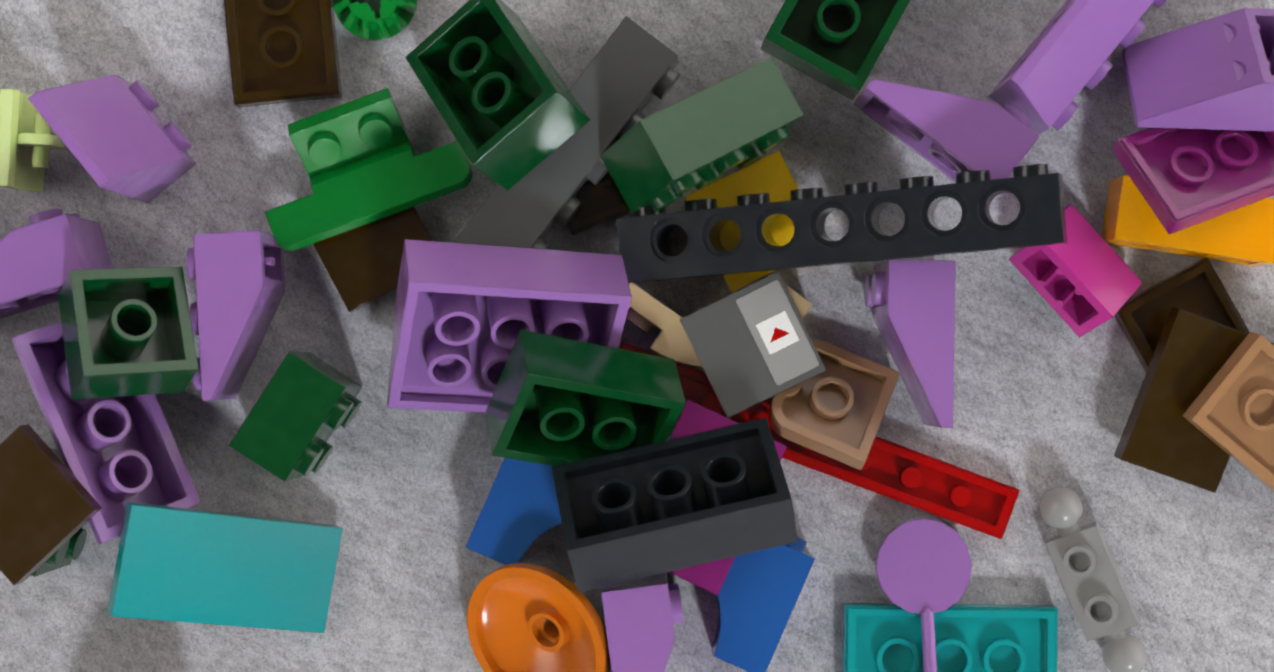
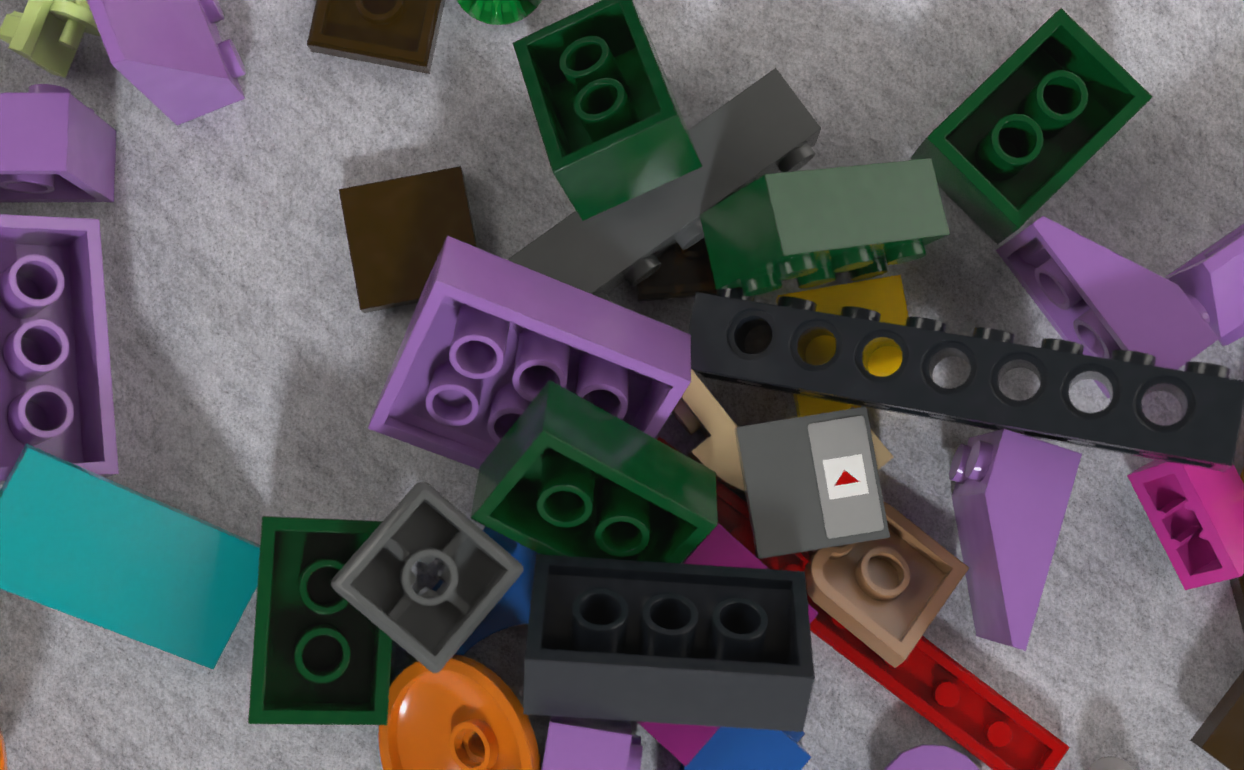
camera: 10 degrees right, 5 degrees down
(127, 332) = (94, 248): dark green brick -> none
(237, 297) = (235, 255): medium lavender slope -> none
(297, 416) = (260, 407): dark green brick -> none
(361, 171) = (424, 156): green plate -> none
(400, 568) = (311, 647): none -> dark green brick
(505, 494) = (472, 570): none -> dark grey brick

